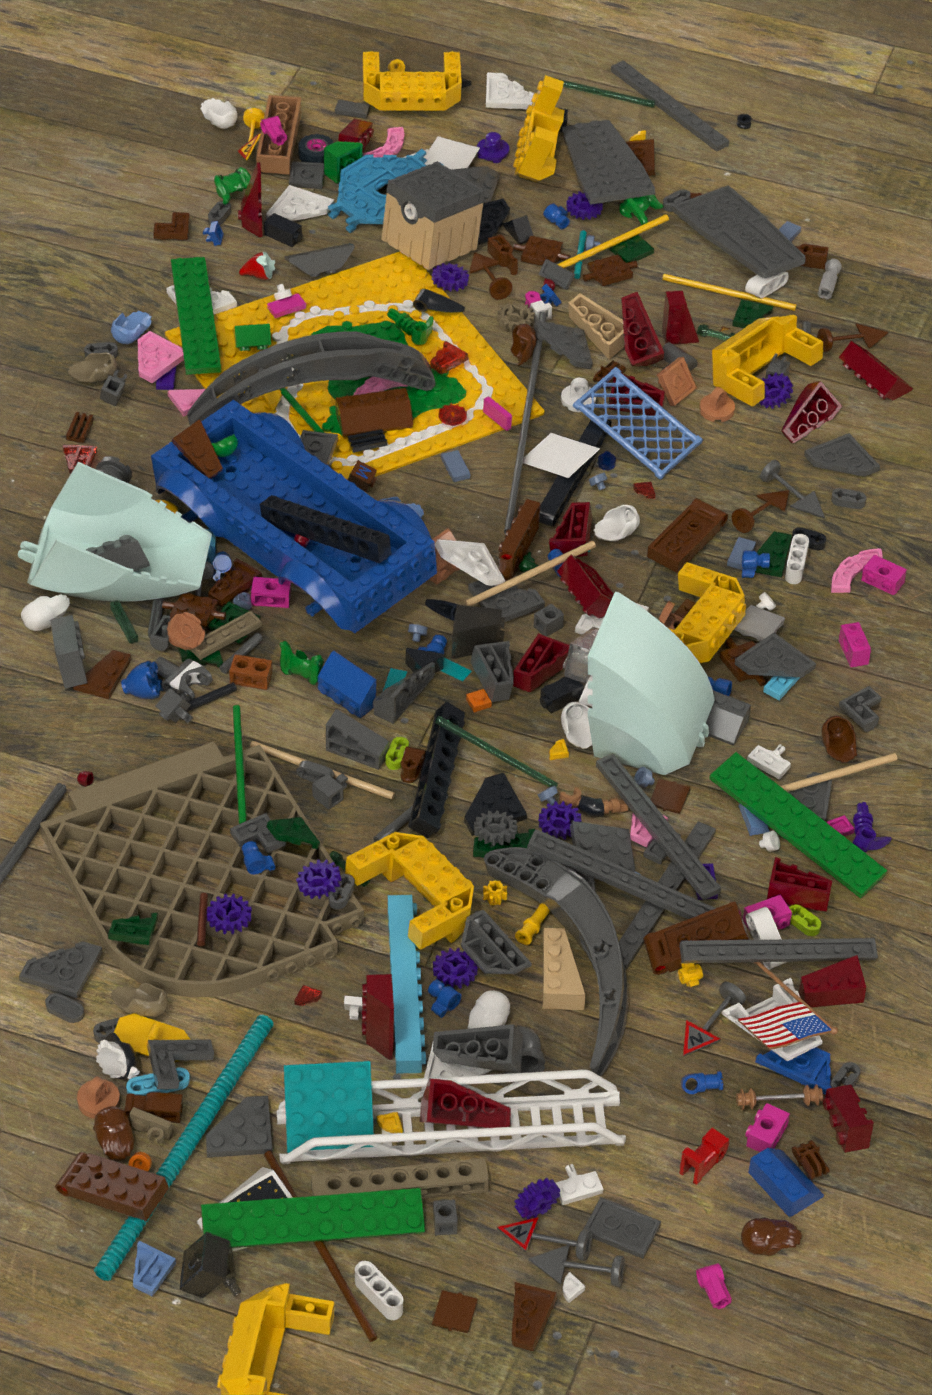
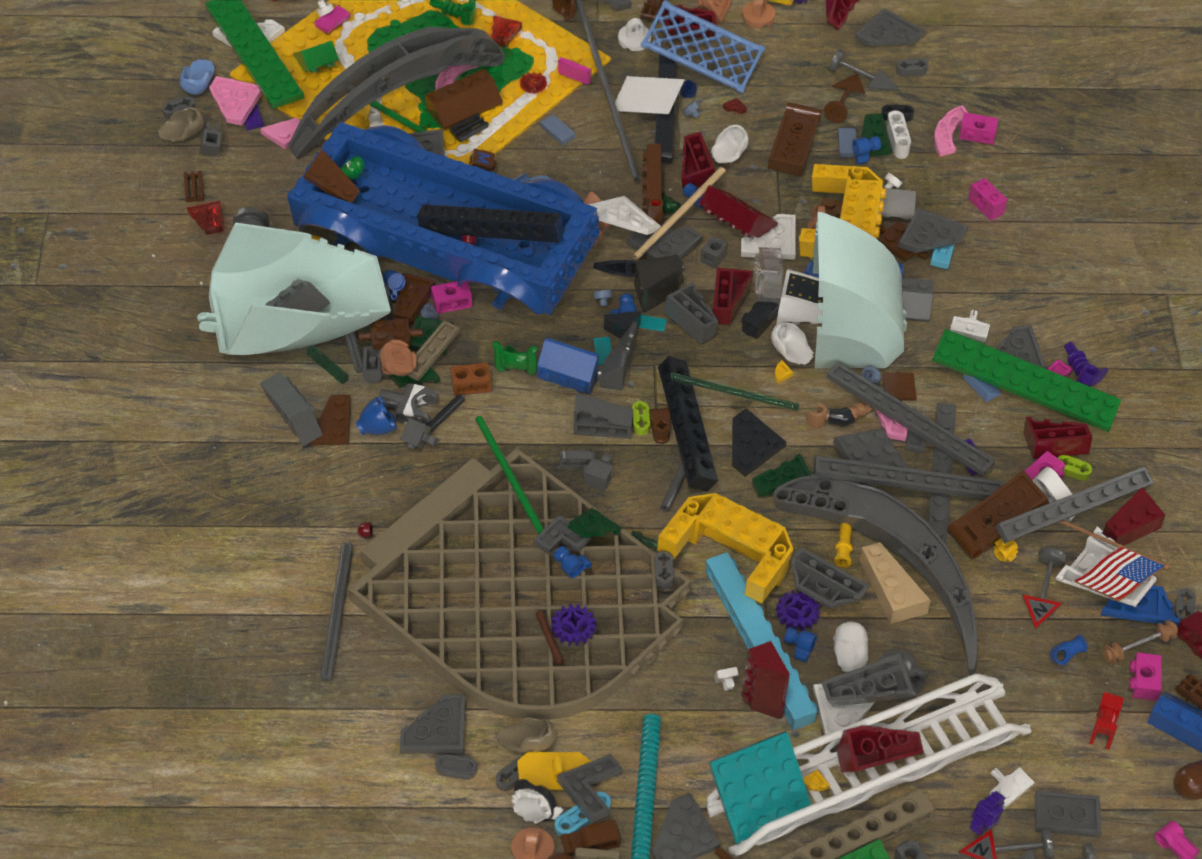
camera: 20 degrees left, 5 degrees up
(42, 610) = (249, 376): white hair -> none
(133, 929) = (491, 668): dark green wing -> none
(243, 650) = (451, 362): dark grey piece -> none
(307, 995) = (676, 680): clear red tile -> none
(319, 879) = (640, 564): dark purple gear -> none
(351, 780) = (556, 453): tan piece -> none
(478, 700) = (688, 345): orange plate -> none
(495, 828) = (769, 464): dark grey gear -> none
(495, 892) = (796, 526): yellow gear -> none
(548, 794) = (796, 417): sand blue tile -> none
(559, 819) = (819, 438): dark purple gear -> none
(770, 841) = (1009, 403): white tile -> none
(839, 739) = (1020, 290): reddish brown hair -> none
(840, 772) = (1038, 320): tan piece -> none
(858, 708) = (1019, 255): dark grey brick -> none

